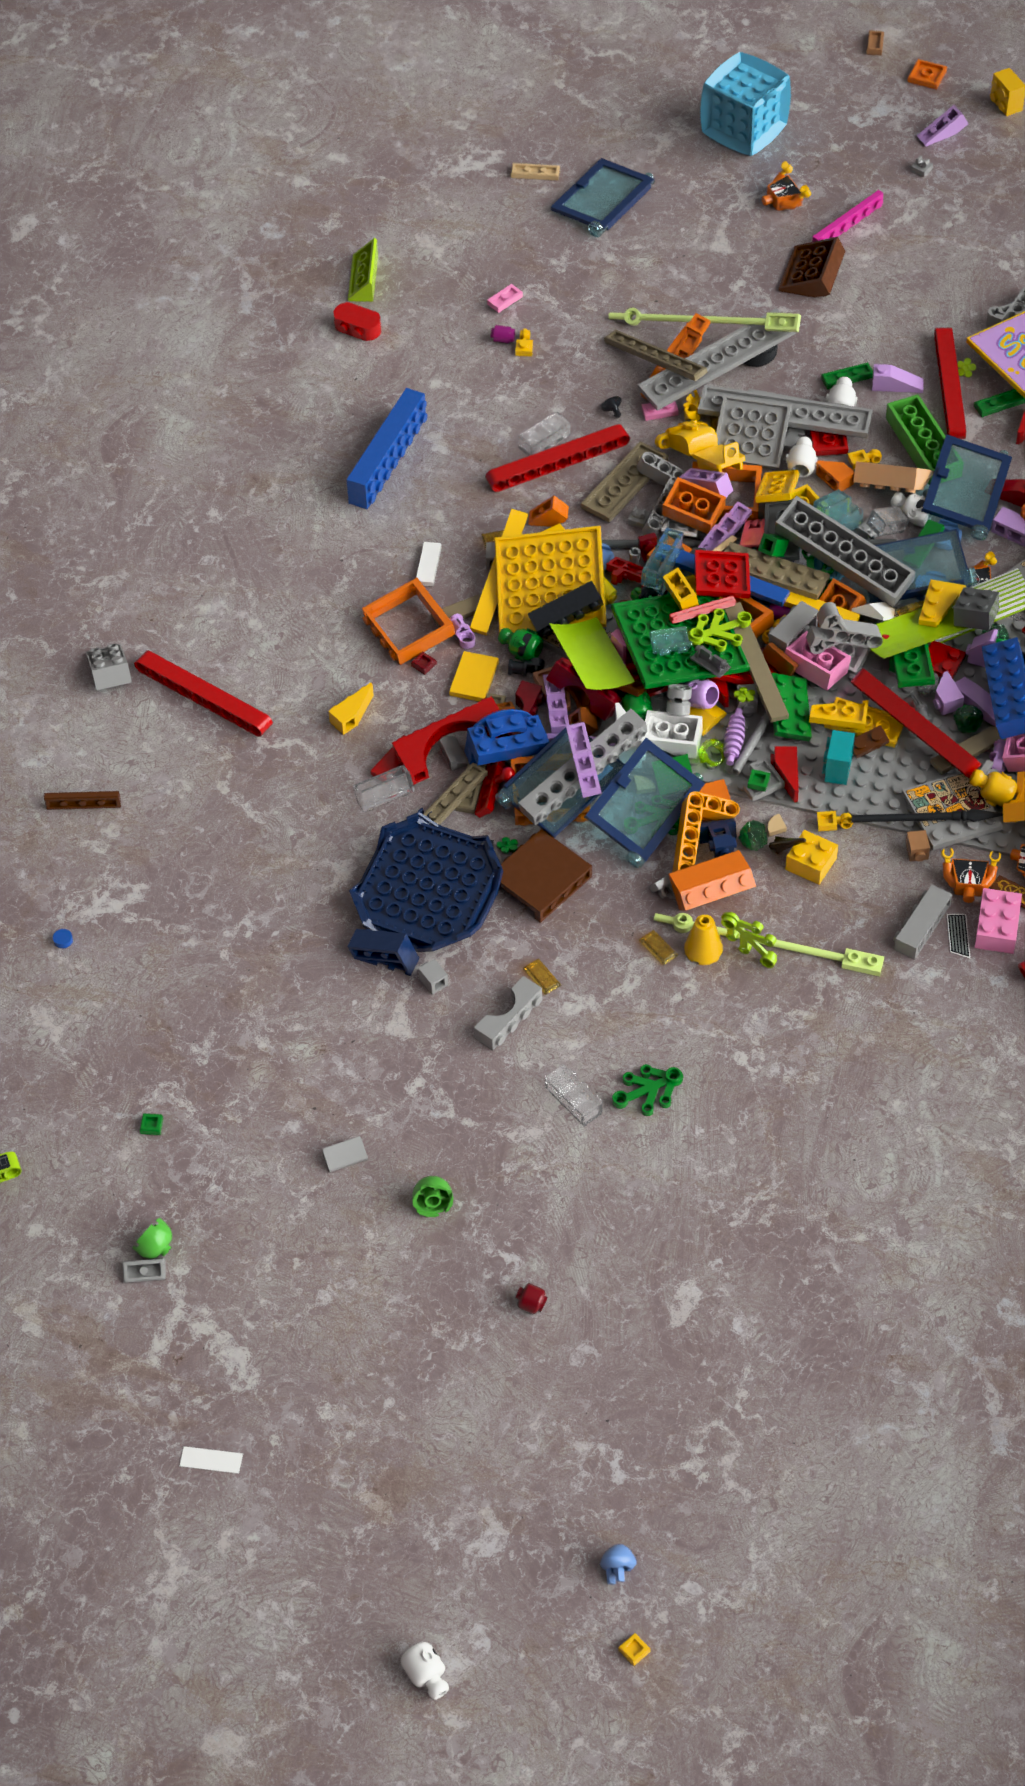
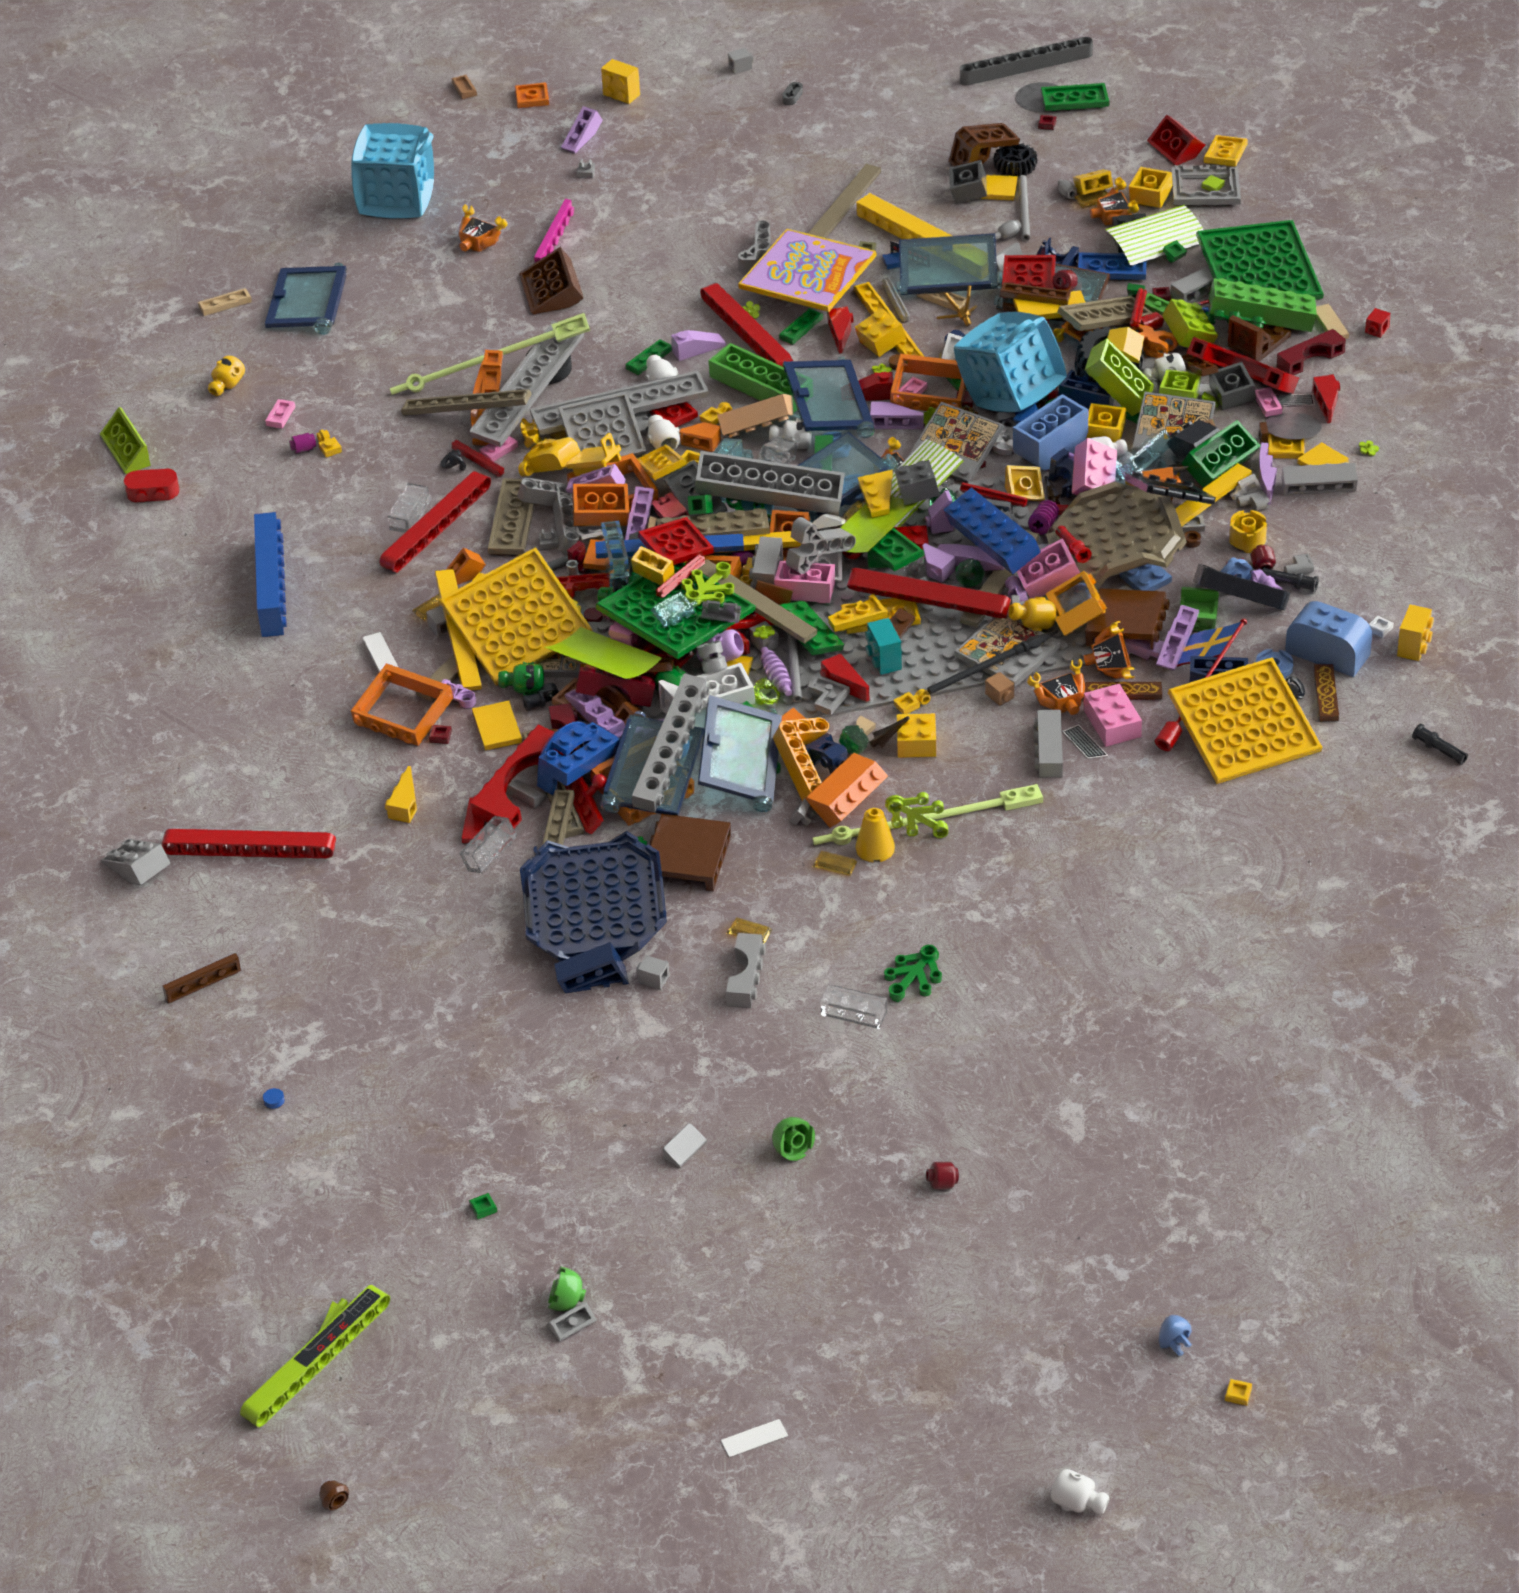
camera: 30 degrees left, 10 degrees down
(485, 242) = (226, 375): none -> yellow piece
(566, 608) = (549, 630): black brick -> none
(583, 759) = (670, 732): lavender slope -> none
(635, 411) = (478, 458): none -> red axle
(758, 780) = (828, 693): green plate -> none

